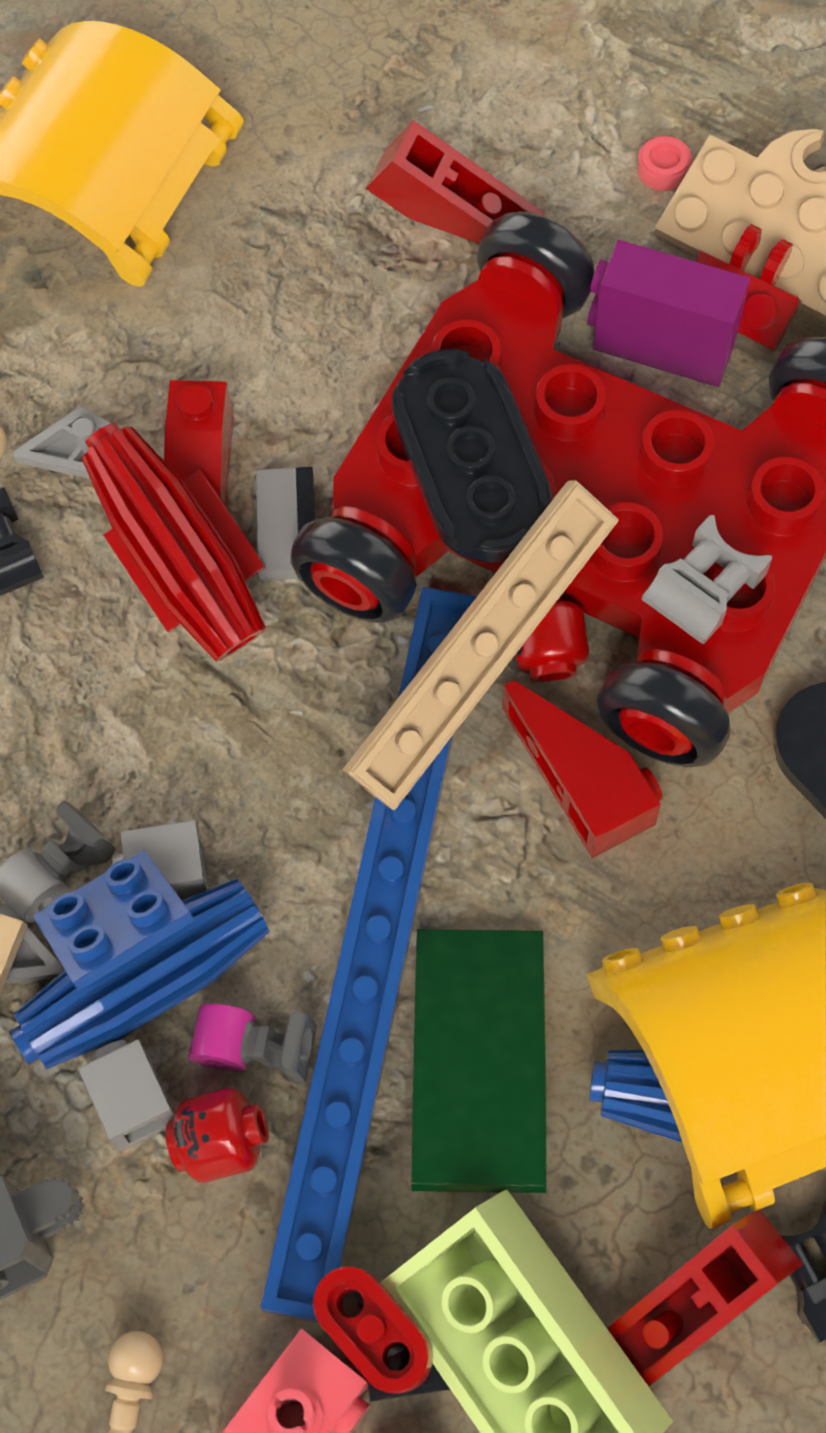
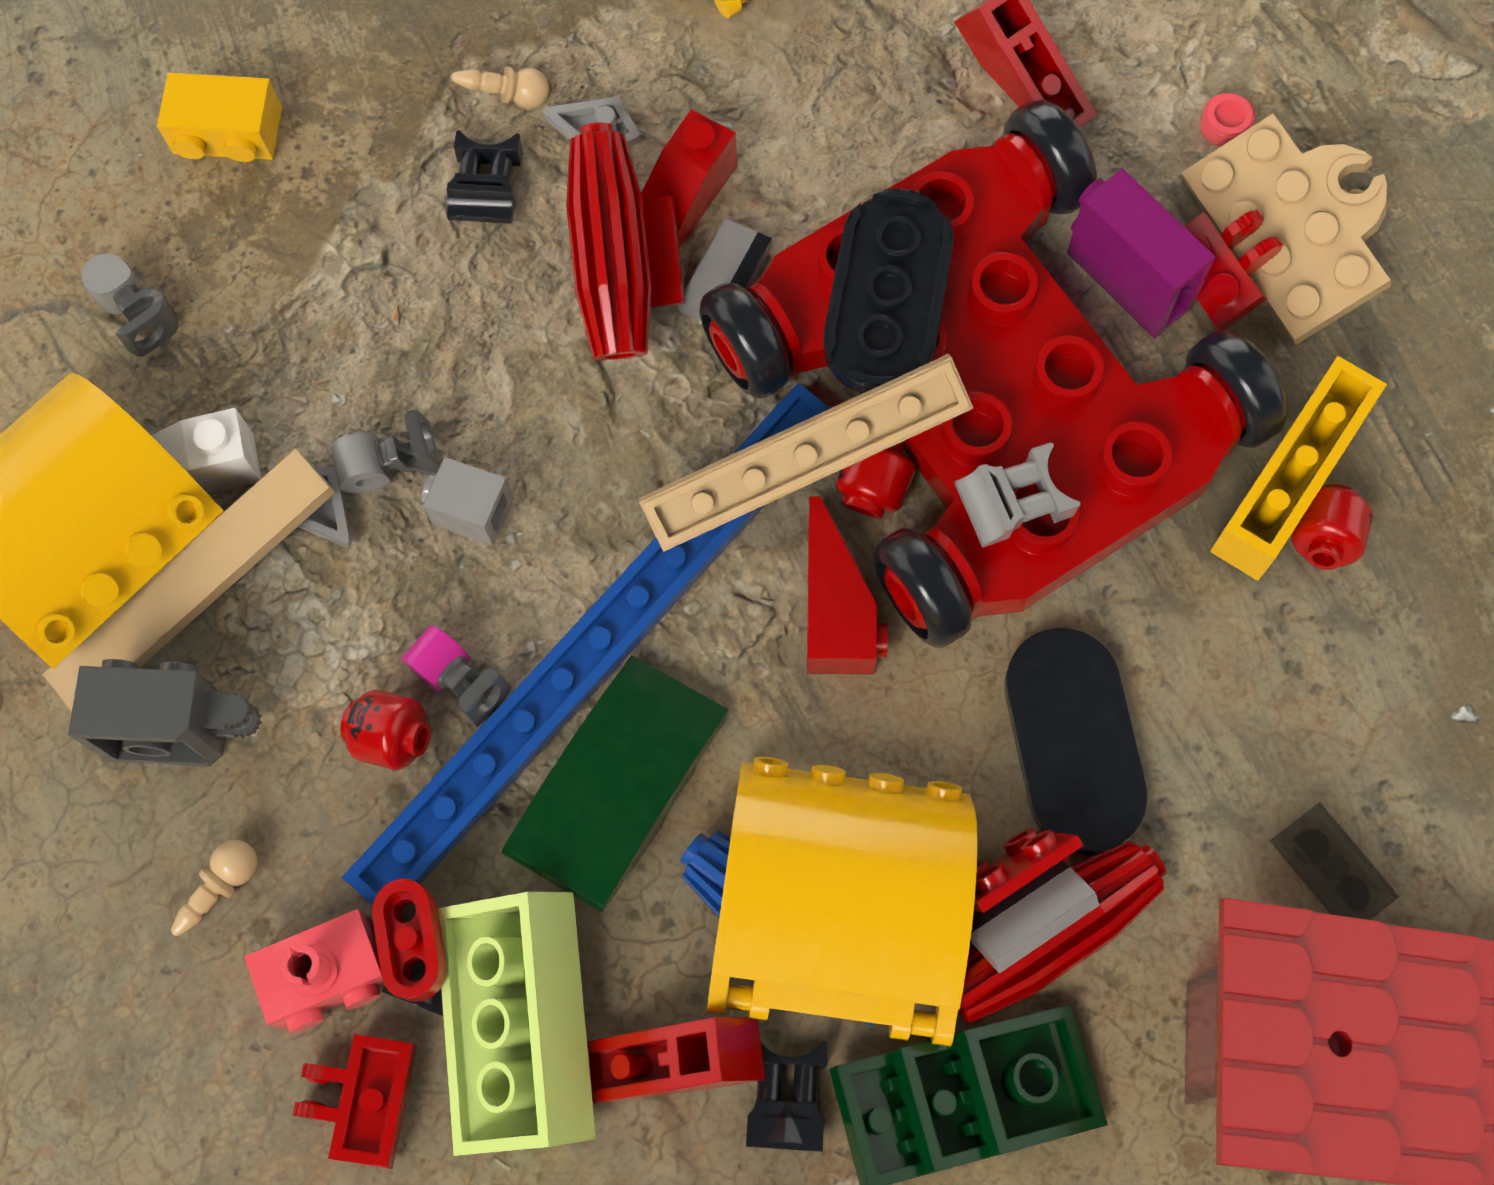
camera: 30 degrees right, 5 degrees up
(126, 1093) = (338, 660): light grey brick -> none
(129, 956) = (396, 557): blue plate -> none

